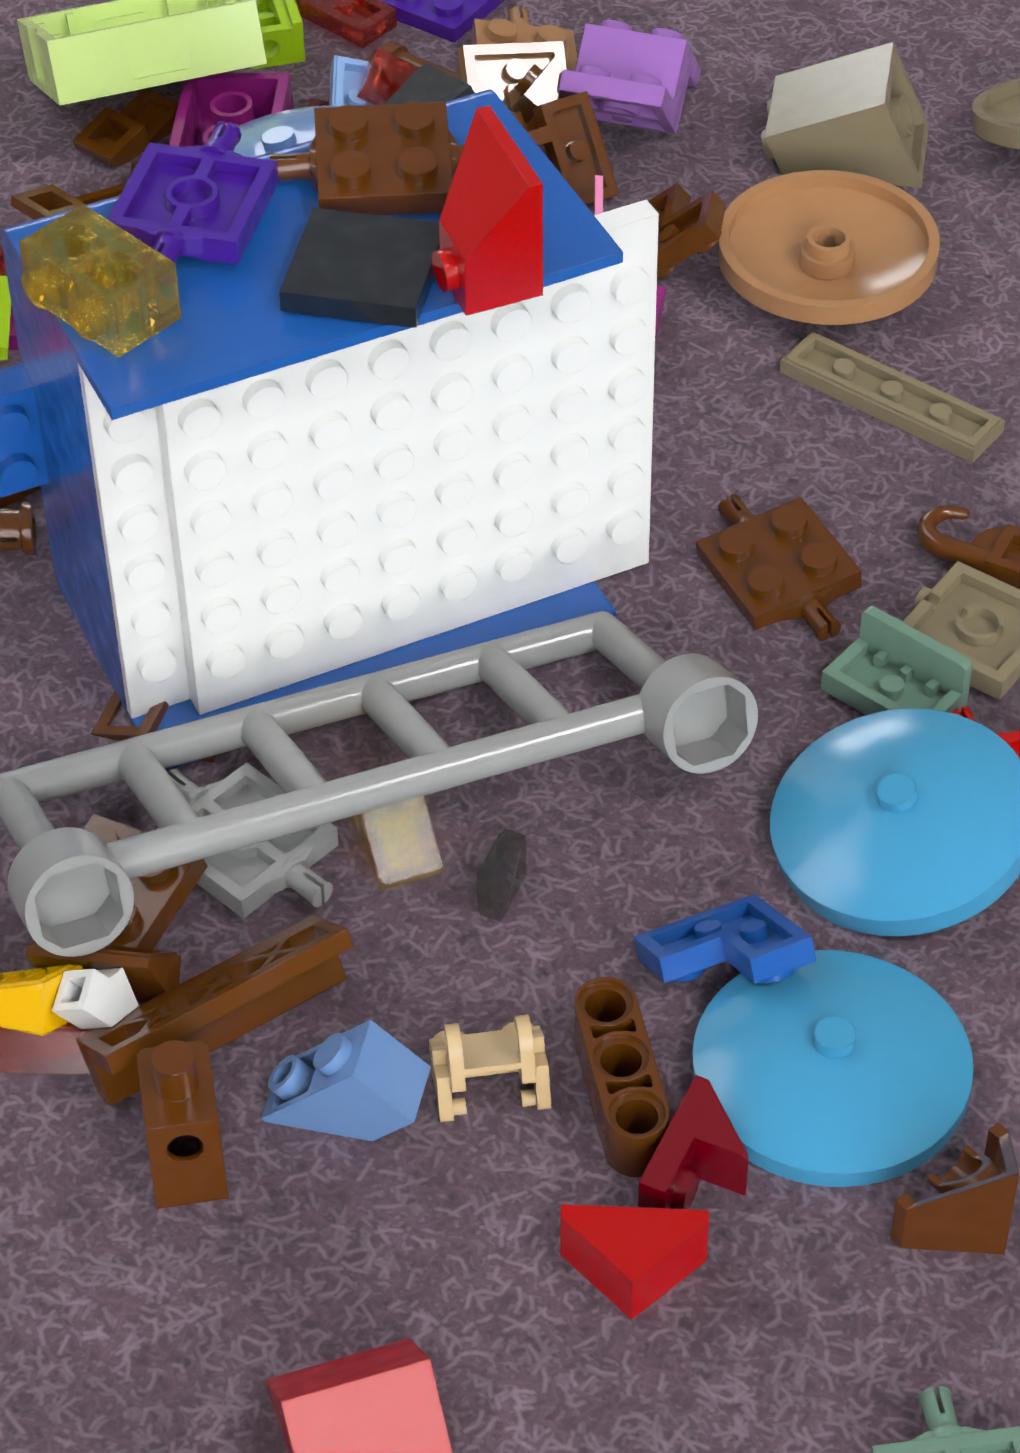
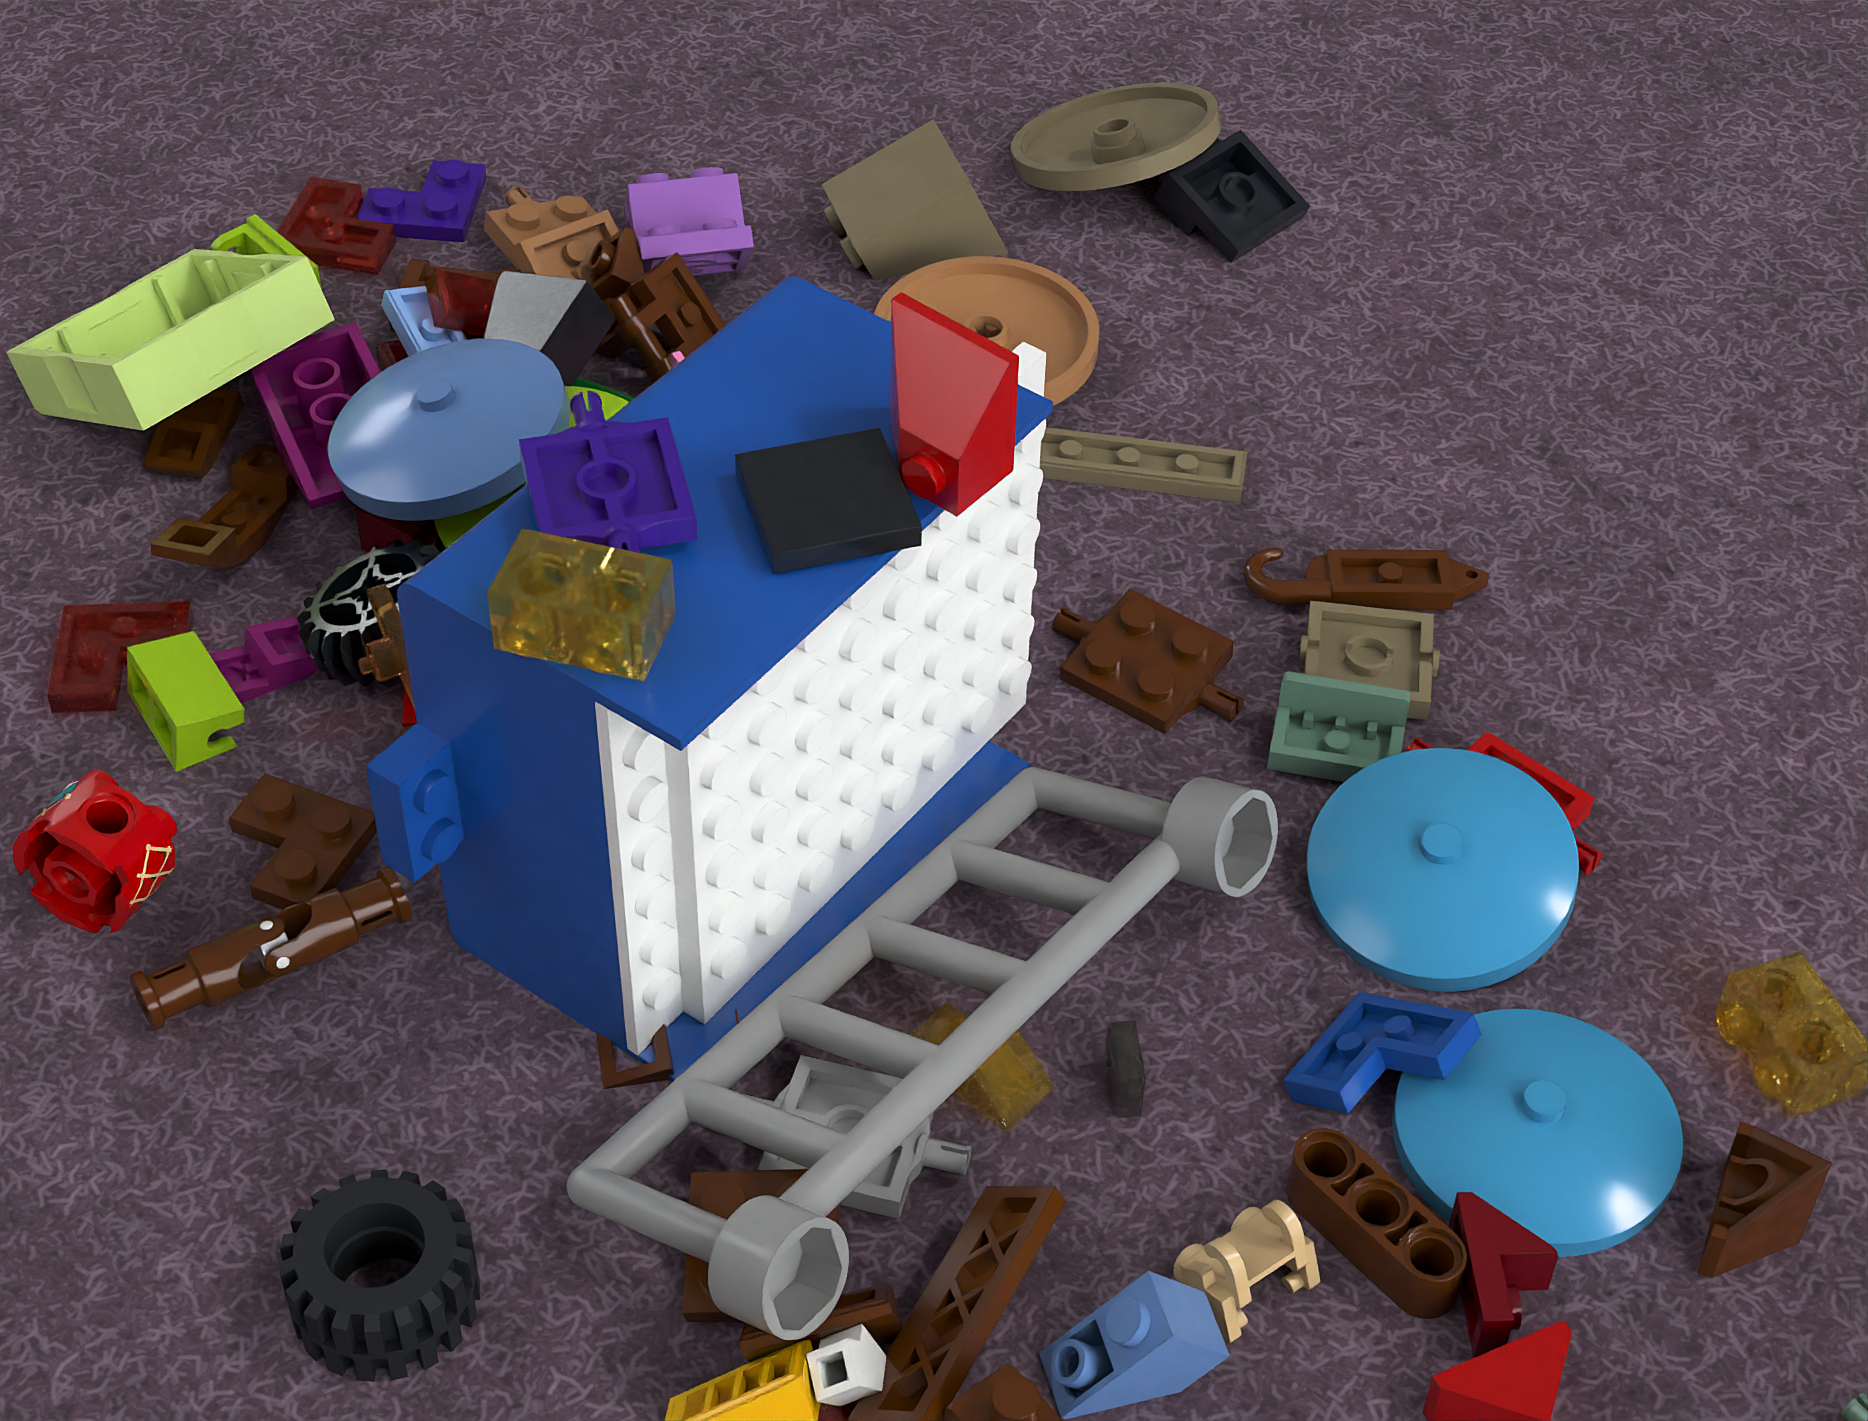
camera: 30 degrees left, 0 degrees up
(378, 158) = (761, 381): reddish brown plate -> none

